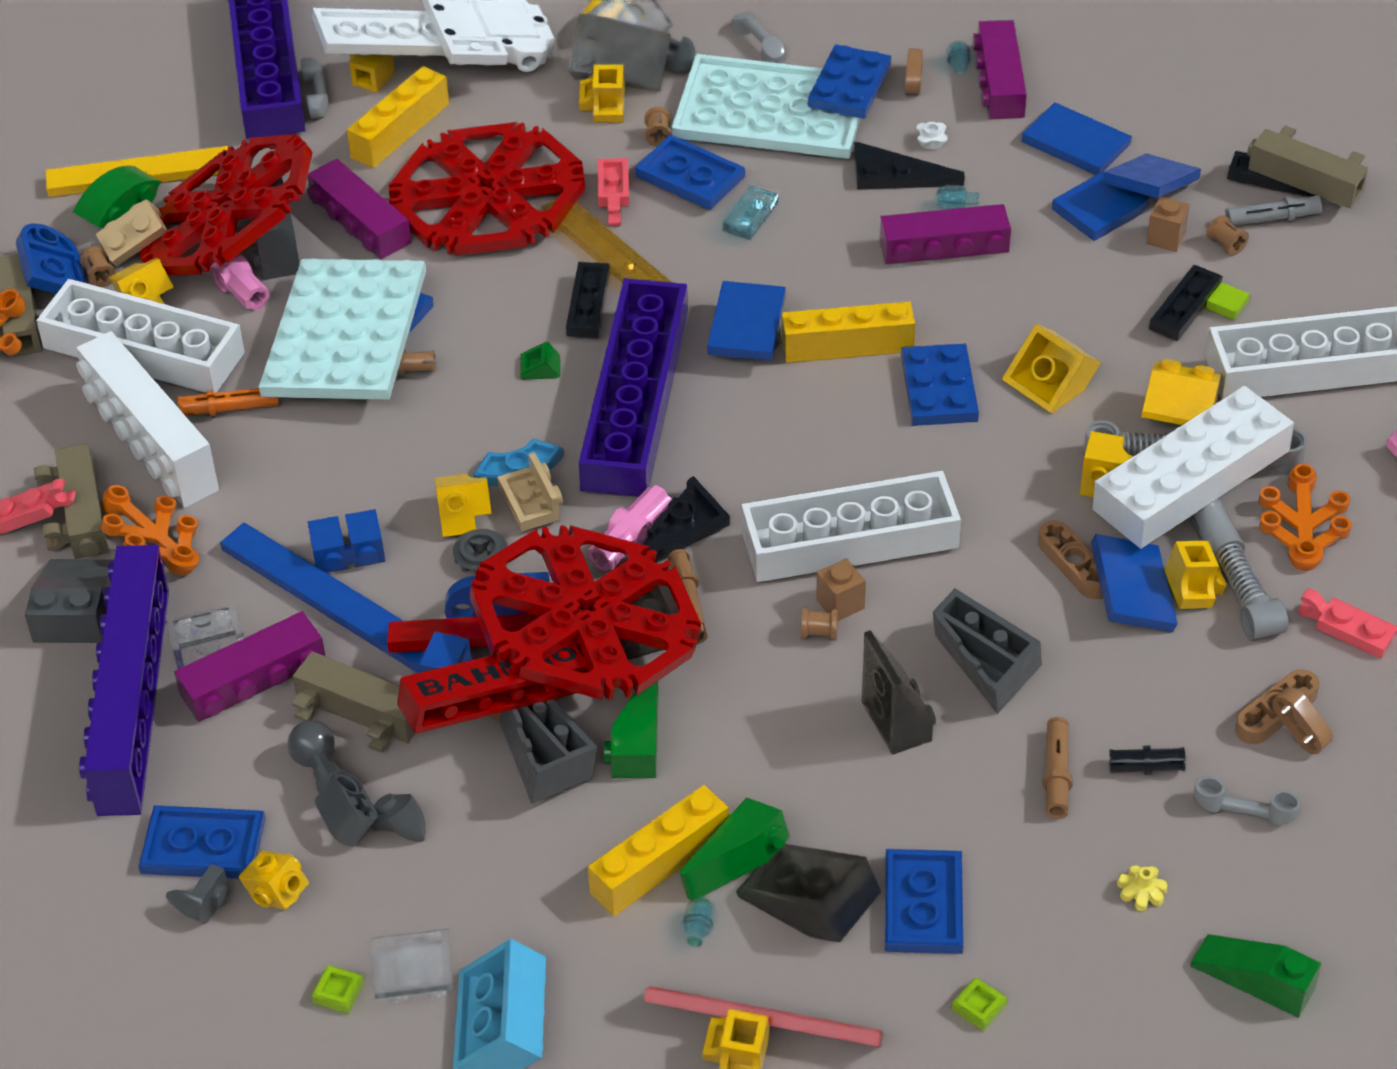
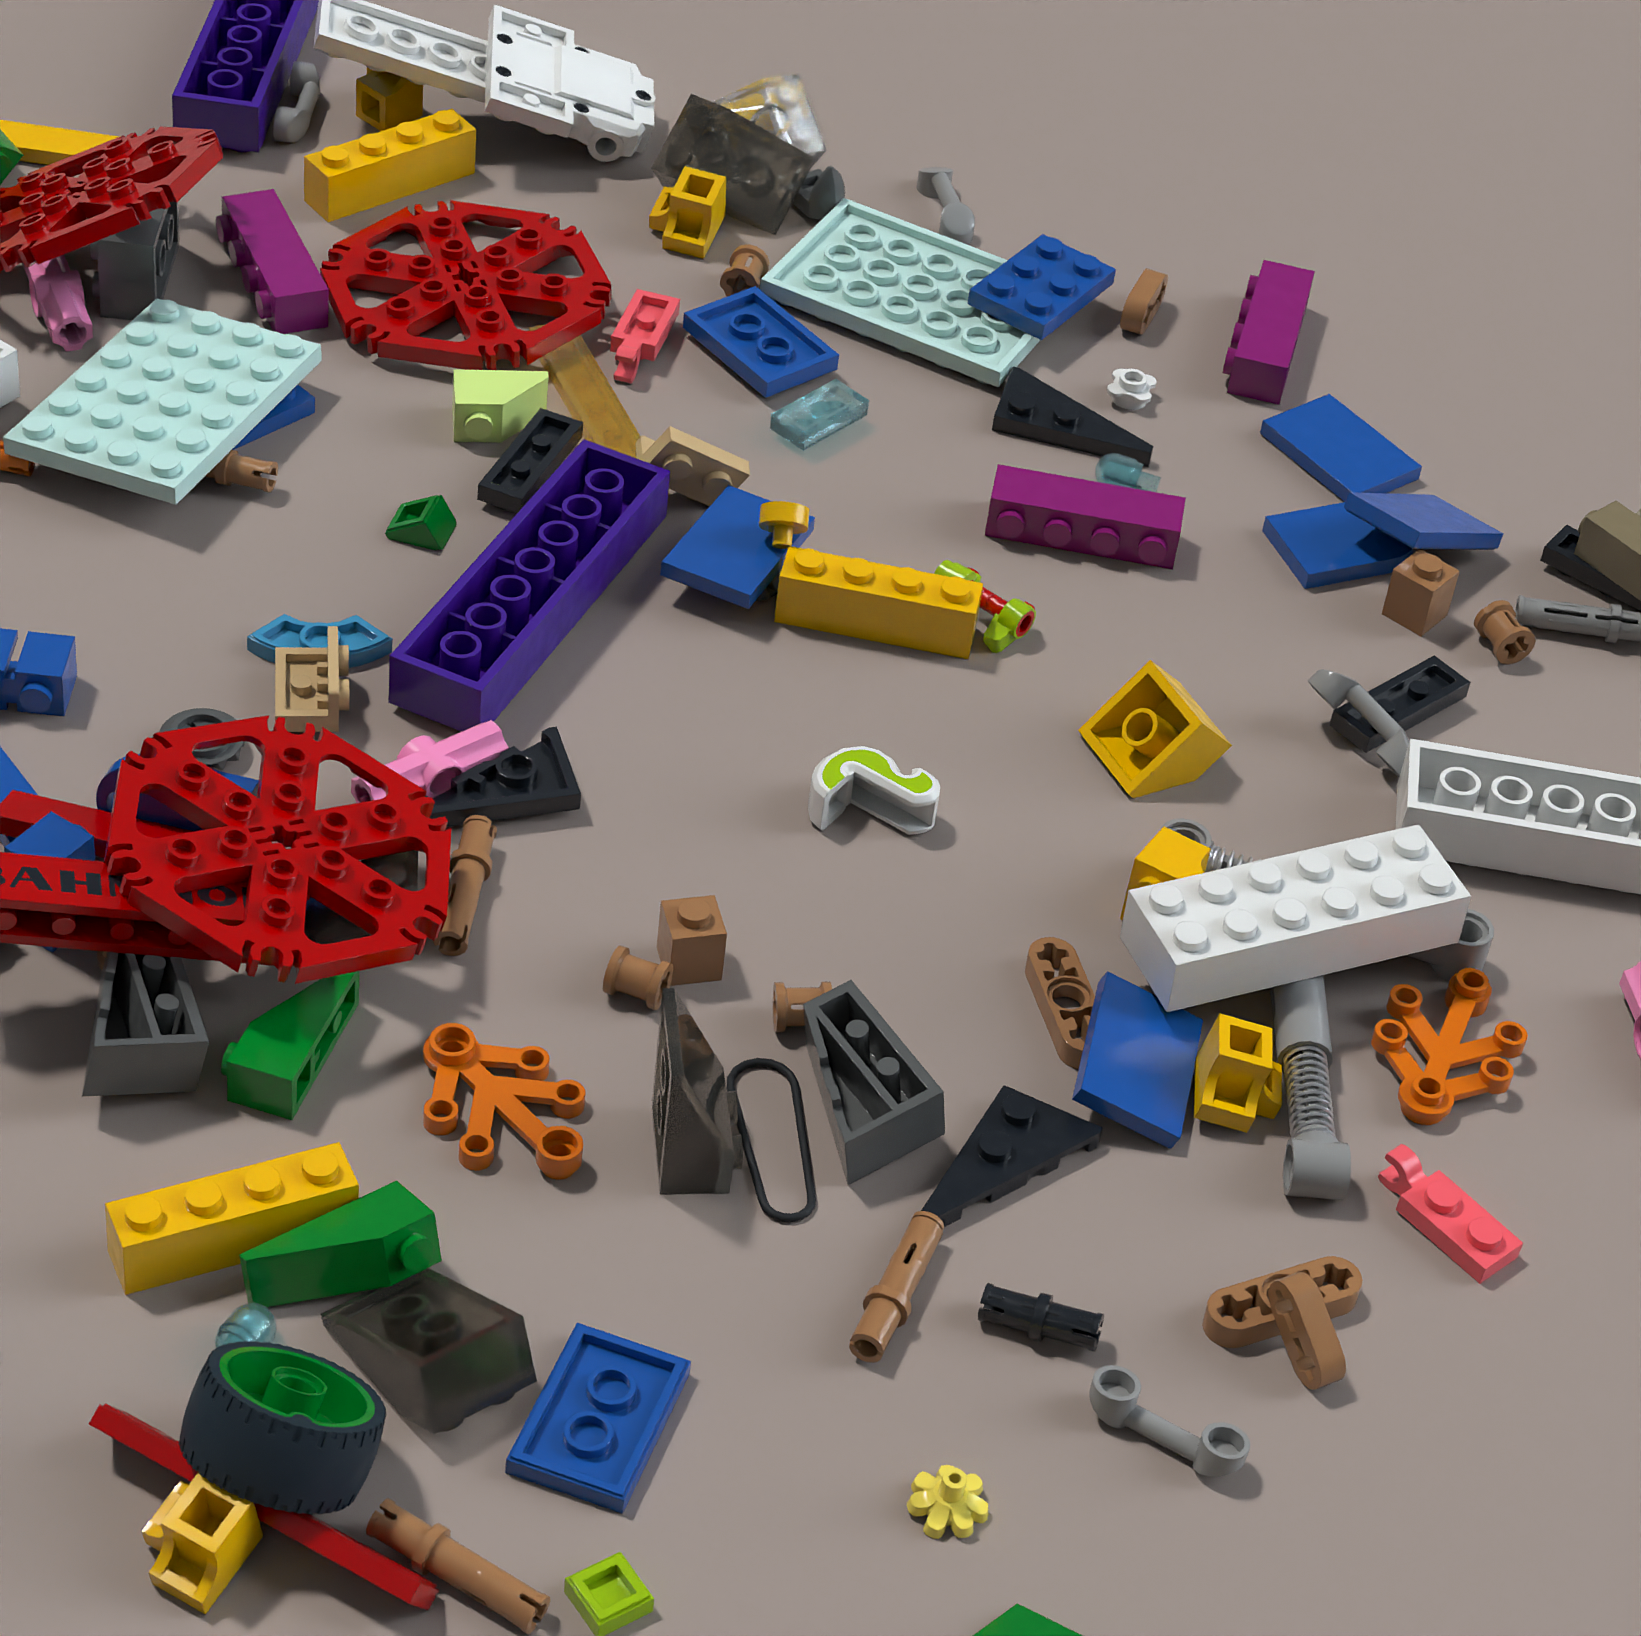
camera: 10 degrees right, 5 degrees down
(459, 502) = (201, 663): yellow brick -> none
(547, 267) = (495, 403): none -> yellowish green slope
(700, 274) = (694, 465): none -> tan bracket
(761, 967) = (282, 1427): none -> black wheel
(773, 297) = (783, 521): none -> yellow tile
(773, 724) = (456, 1053): none -> orange plant
(850, 522) = (751, 853): white brick -> none
(888, 1015) = (437, 1553): none -> medium nougat pin
(903, 455) = (875, 785): none -> white animal
(912, 611) = (784, 997): none -> medium nougat bush
(930, 316) = (1010, 619): none -> lime piece
(939, 384) = (982, 711): blue plate -> none
(958, 56) = (1219, 300): clear light blue cylinder -> none
(960, 696) = (809, 1183): none -> black piece
(1081, 660) = (1008, 1148): none -> black wing
(1149, 305) = (1337, 688): none -> light grey bar
(1179, 392) = (1325, 809): yellow slope -> none
(1227, 301) = (1466, 720): lime tile -> none

